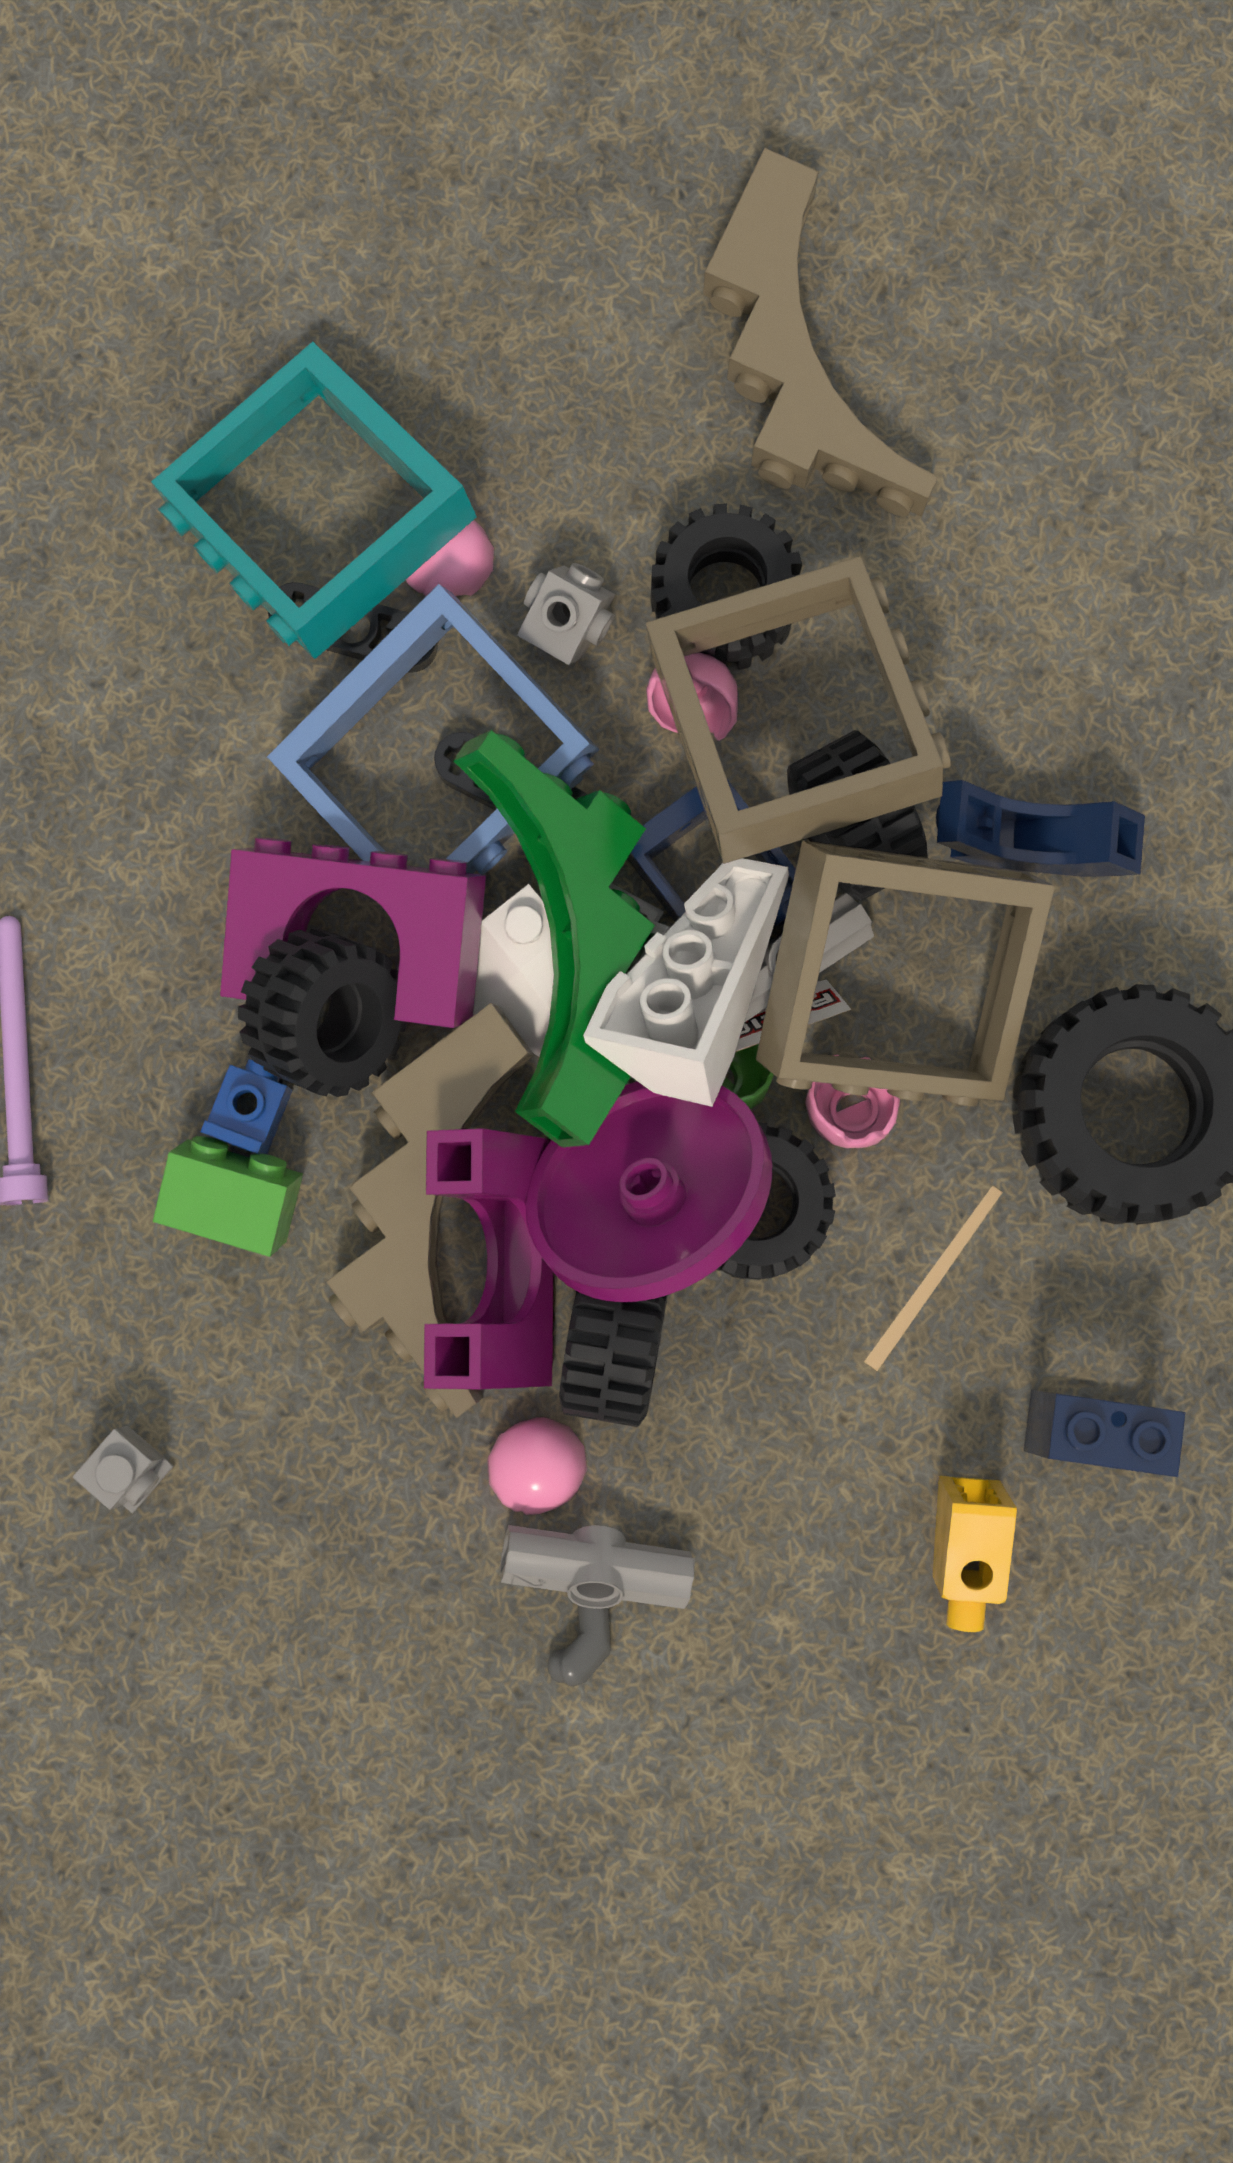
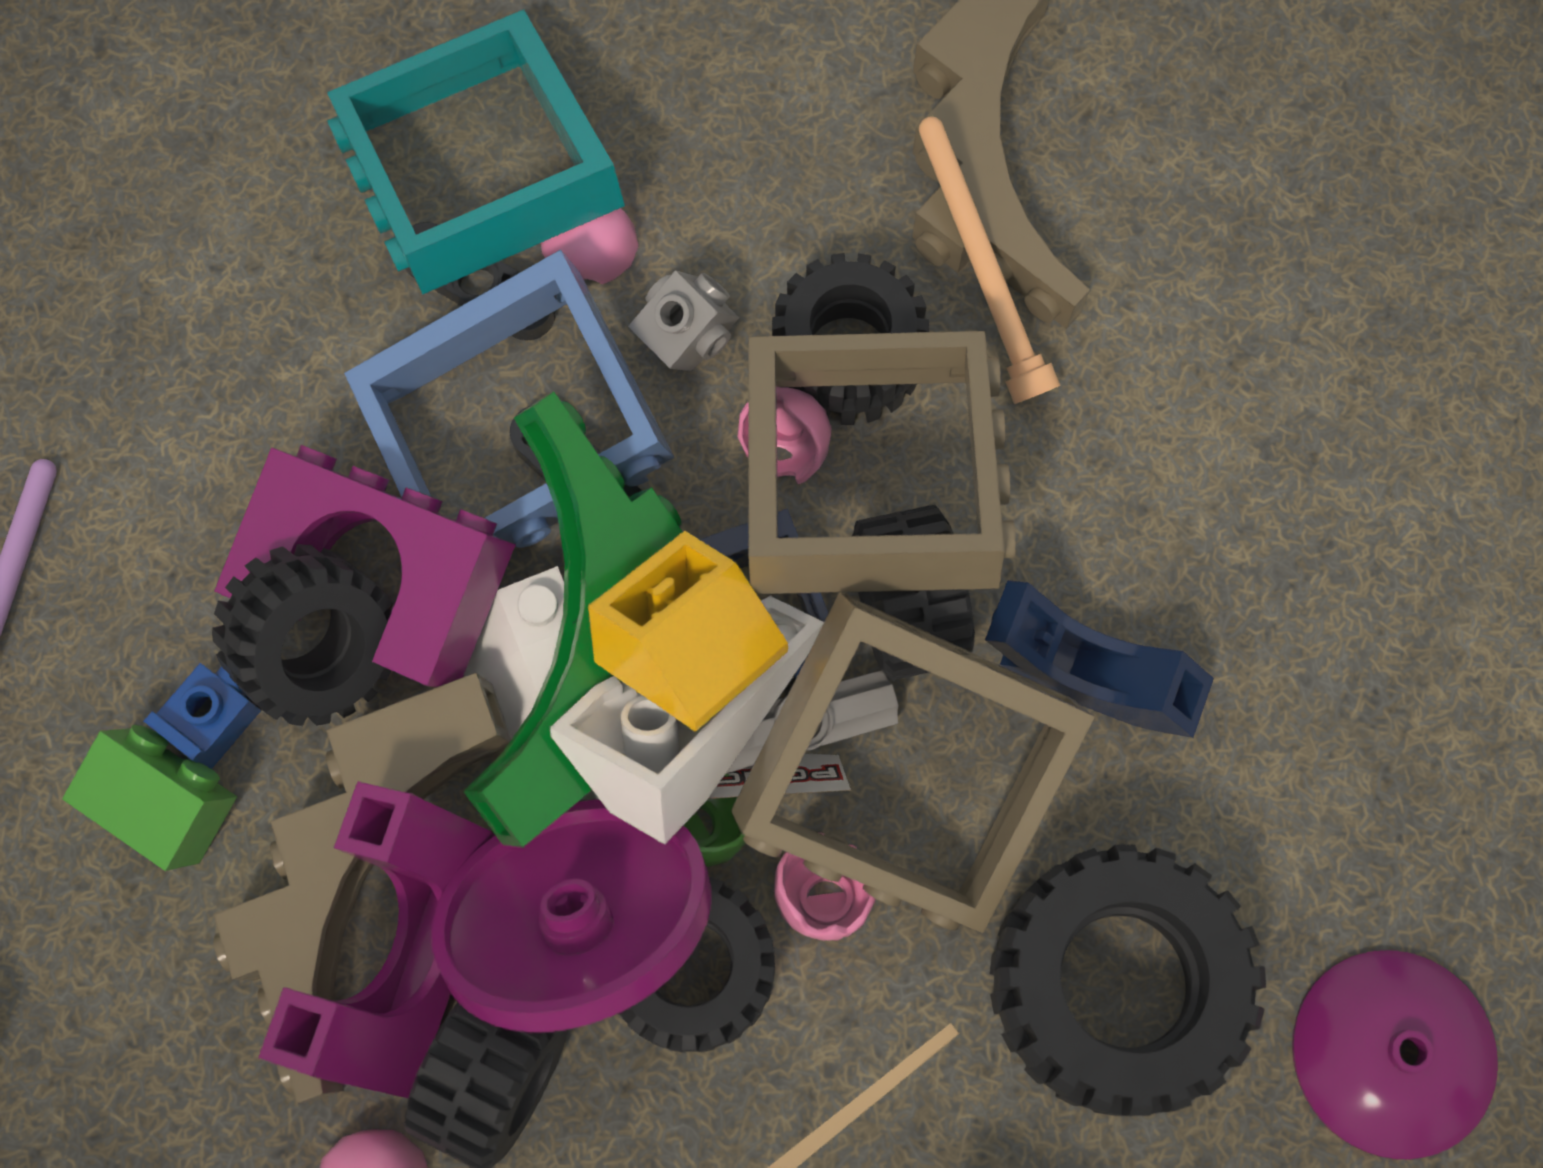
camera: 15 degrees right, 10 degrees down
(676, 914) = (685, 631): none -> yellow slope
(900, 572) = (1028, 372): none -> light nougat piece

